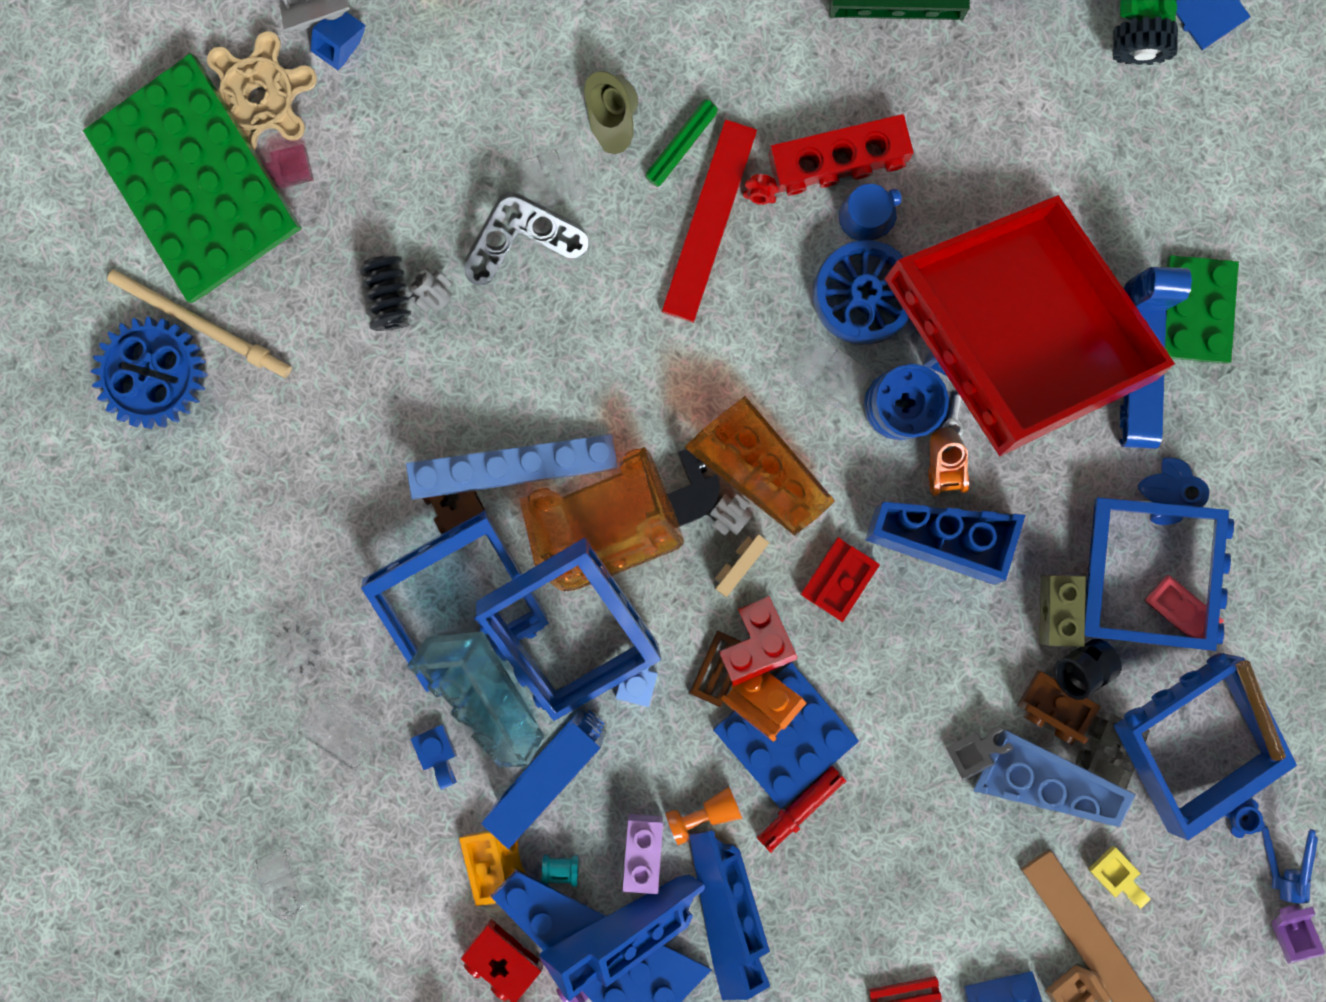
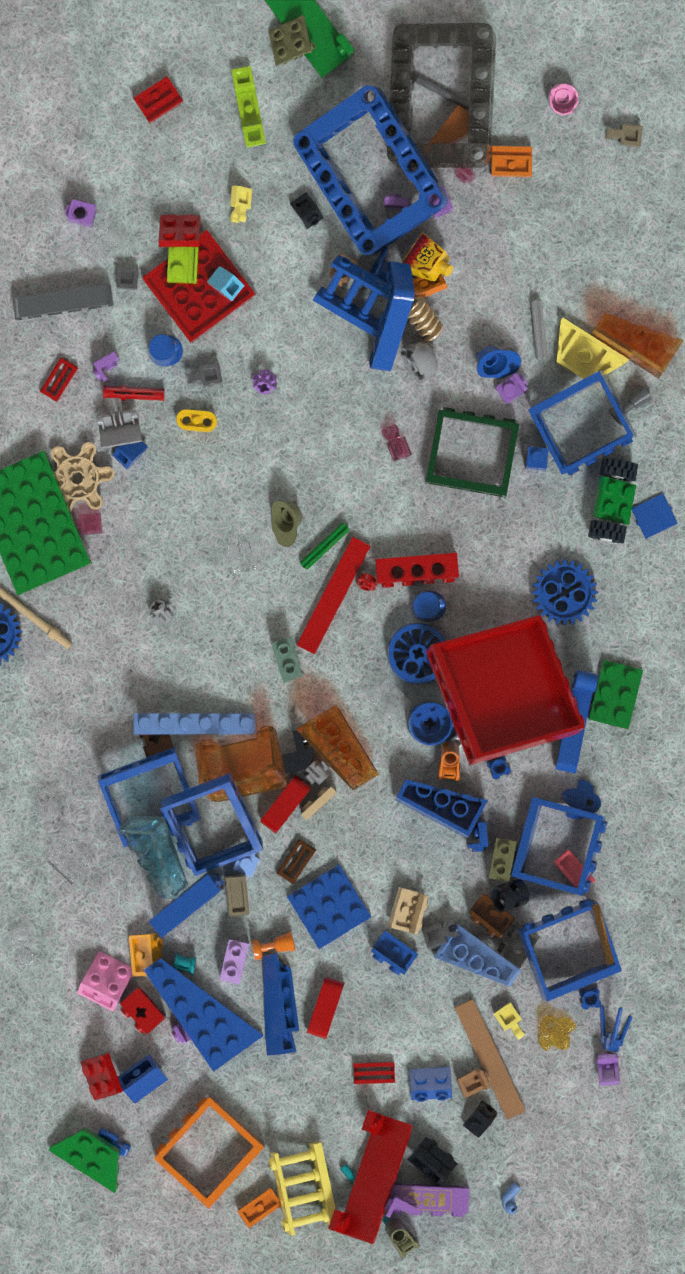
camera: 15 degrees right, 0 degrees up
(384, 293) = (135, 609): black piece -> none
(432, 919) = (105, 981): none -> bright pink bracket
(434, 751) = (122, 883): blue plate -> none
(520, 223) = (220, 581): beam -> none
(622, 938) = (215, 1006): blue wedge -> none
(629, 740) = (237, 894): none -> dark tan tile
(650, 336) = (287, 659): none -> sand green brick
(686, 576) = (285, 804): none -> red beam
(765, 650) = (324, 854): red plate -> none
(765, 703) = (318, 883): orange plate -> none
(801, 809) = (330, 951): red pin -> none
(809, 906) = (325, 1007): none -> red beam
(839, 579) = (375, 820): red plate -> none
(907, 796) = (394, 953): none -> blue bracket
(920, 721) = (408, 911): none -> tan bracket
(1022, 575) = (481, 834): none -> blue bracket
(1037, 462) = (501, 761): none -> blue plate
(1068, 131) = (555, 576): none -> blue gear
(1201, 886) = (557, 1035): none -> clear yellow plate

